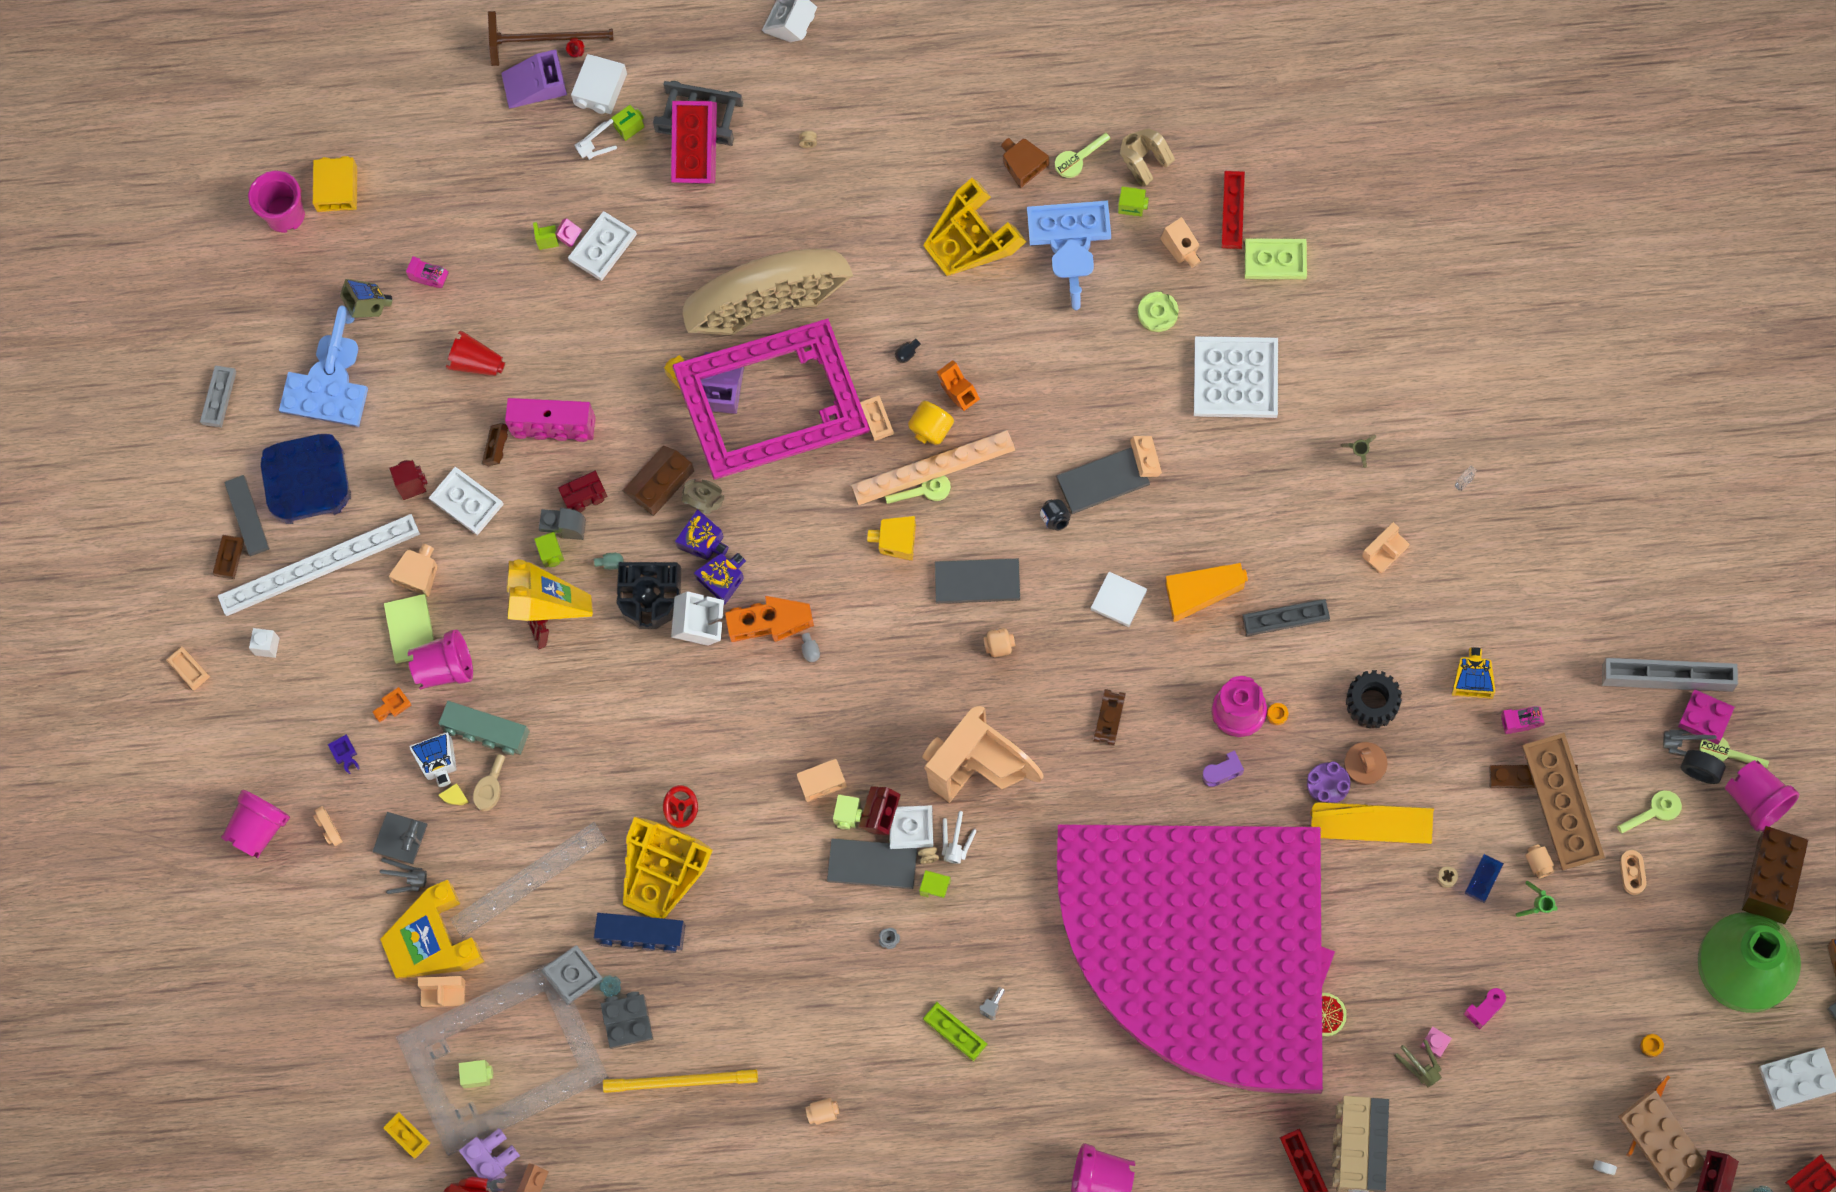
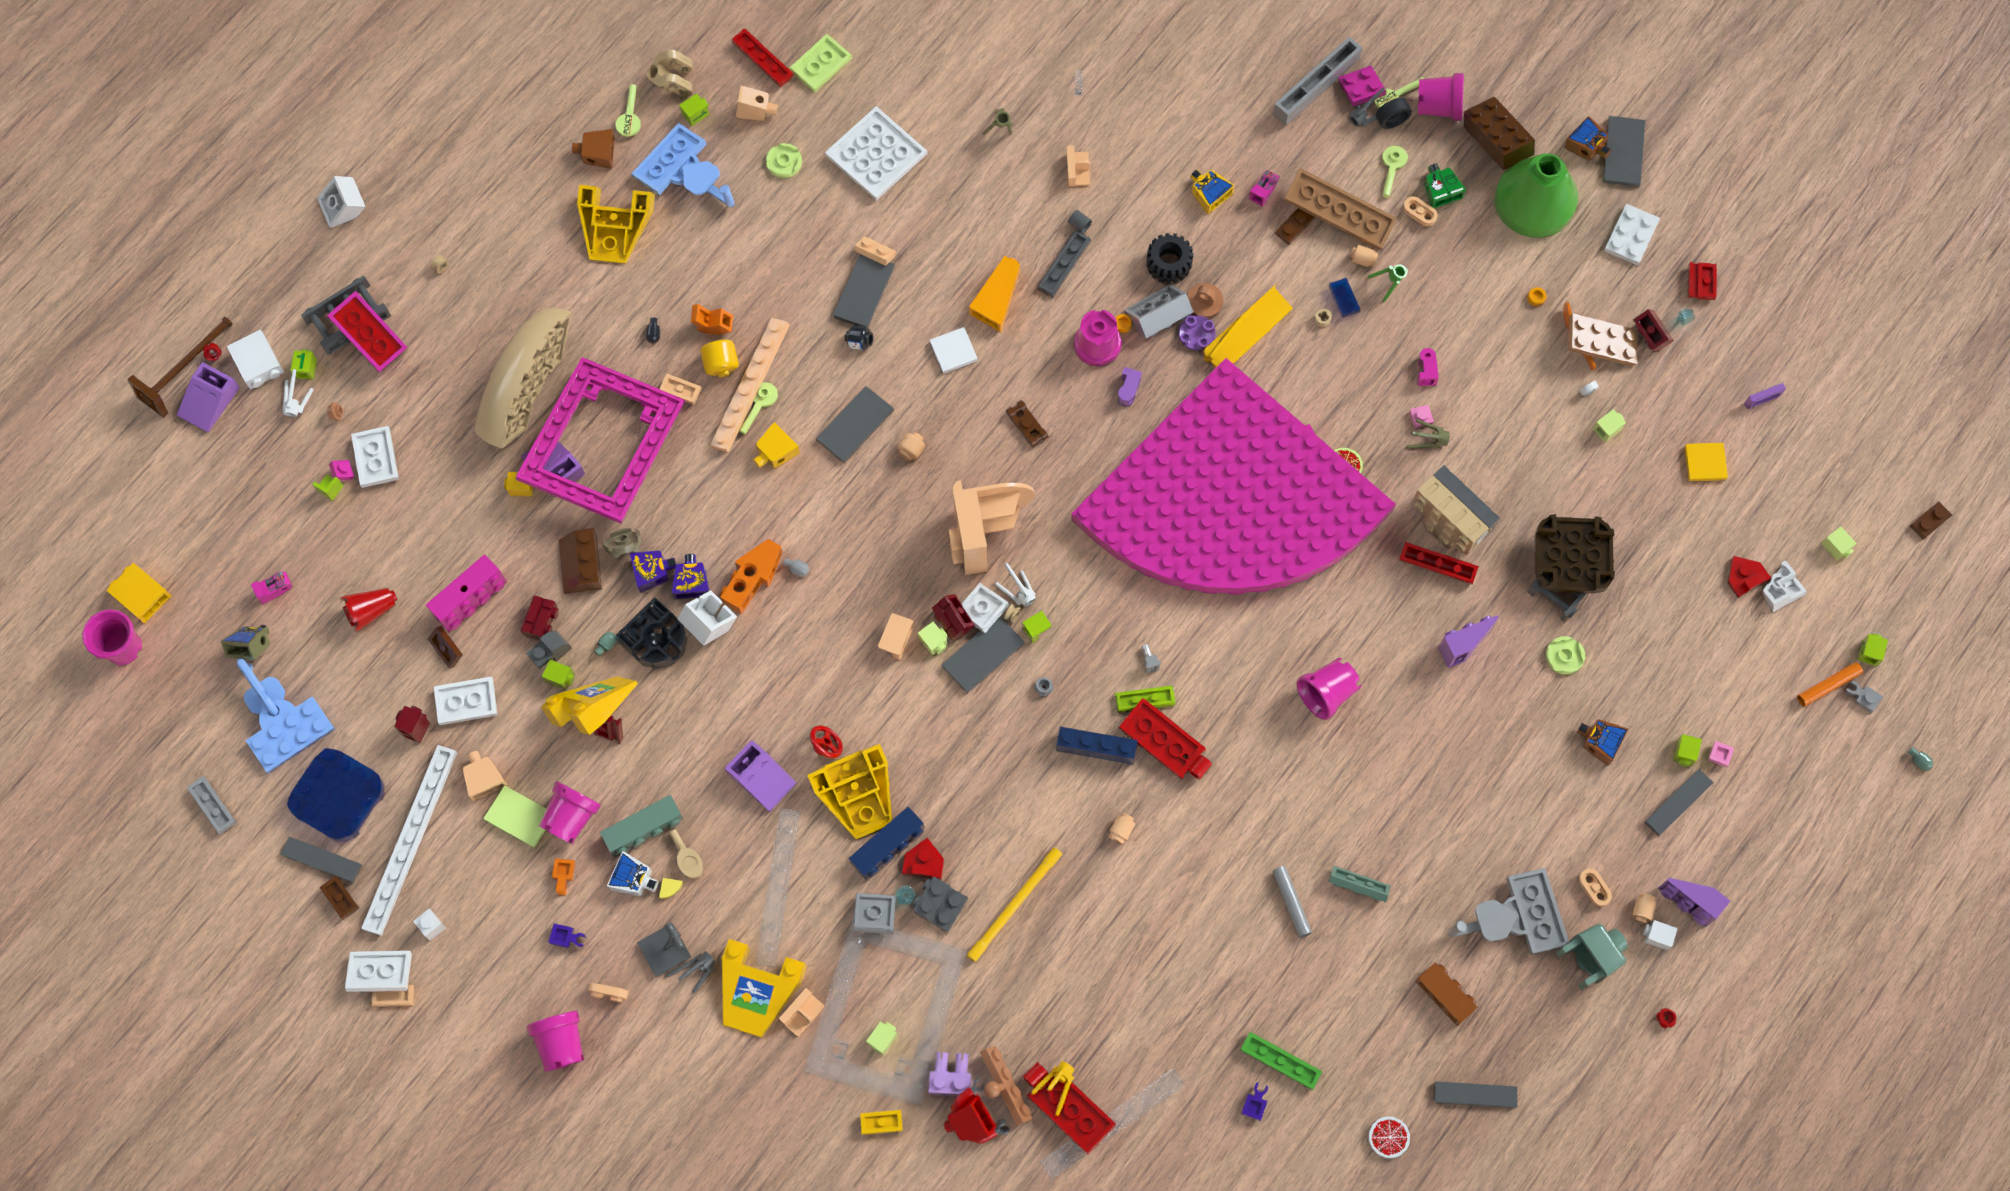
camera: 55 degrees left, 0 degrees up
(195, 639) = (378, 971): none -> white plate
(605, 781) = (760, 775): none -> medium lavender slope
(611, 181) = (335, 411): none -> nougat plate
(652, 975) = (923, 861): none -> red plate
(875, 1027) = (1096, 745): none -> dark blue brick
(930, 1080) = (1165, 740): none -> red hinge
(1317, 733) = (1159, 310): none -> light grey slope
(1336, 595) = (1079, 221): none -> dark grey beam
(1676, 871) = (1442, 186): none -> green torso

